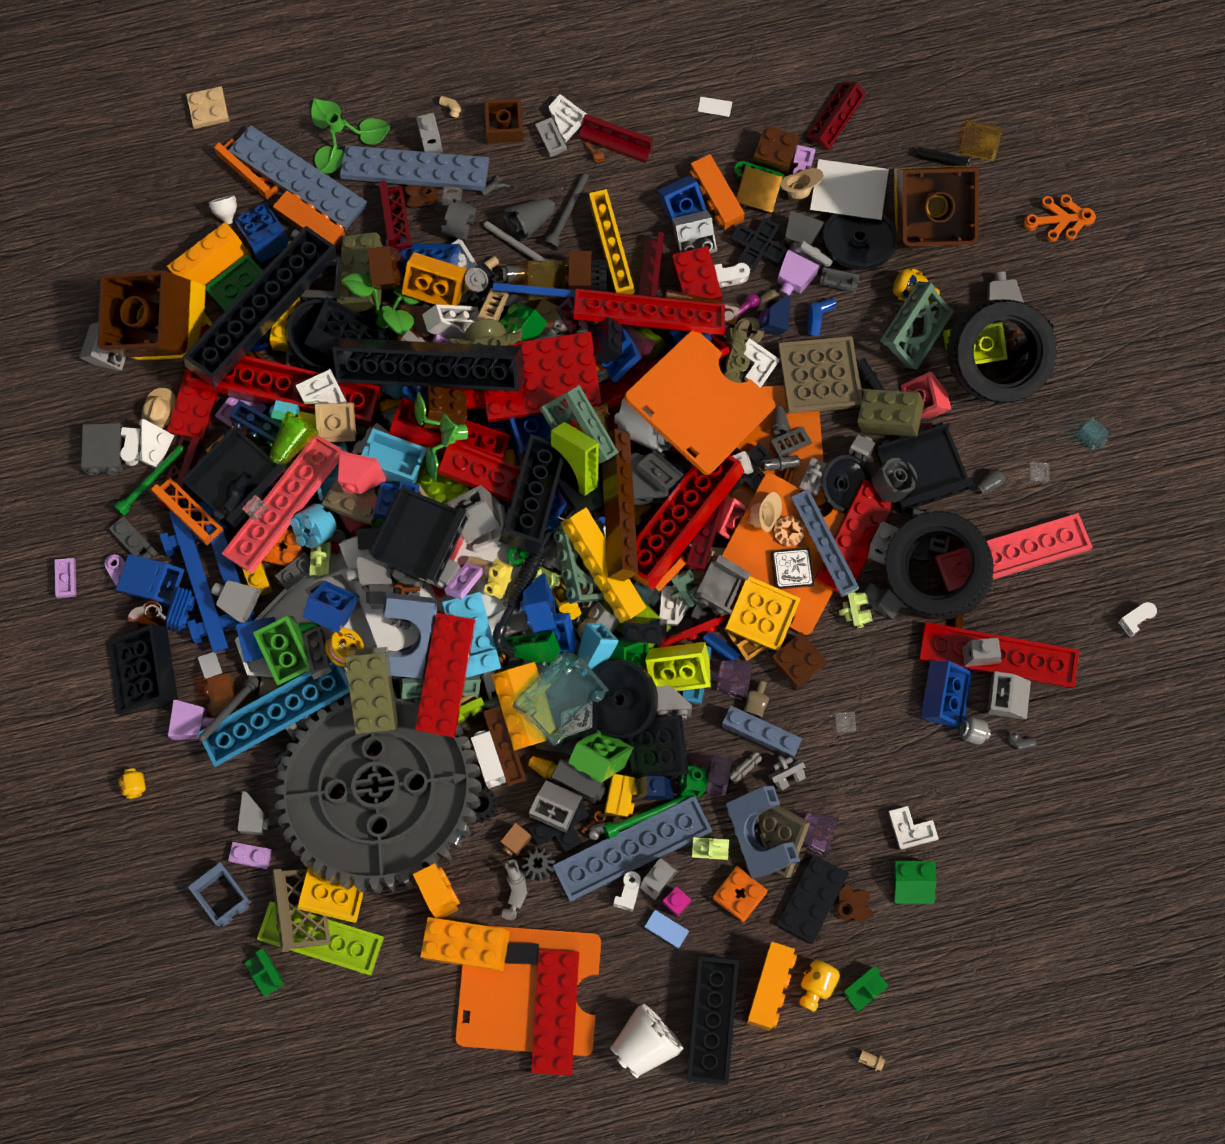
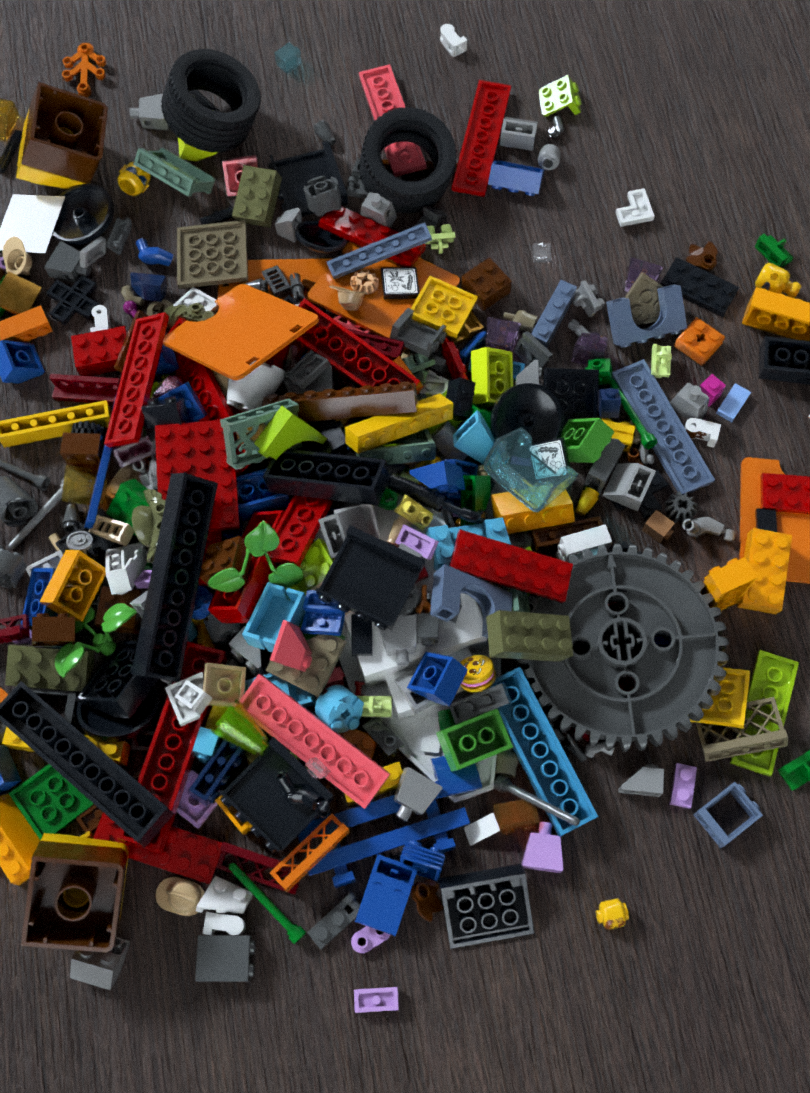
camera: 90 degrees left, 5 degrees down
(316, 393) = (193, 697): none -> white slope
(694, 232) = (52, 352): light grey slope -> none
(713, 710) = (531, 349): none -> dark grey plate
(796, 273) = (107, 270): lavender torso -> none
(813, 476) = (312, 260): light grey hips -> none
(914, 882) = (680, 208): green slope -> none
(982, 652) = (484, 134): light grey torso -> none
(1039, 472) = (319, 98): clear plate -> none
(1063, 745) = (559, 95): none -> bracket

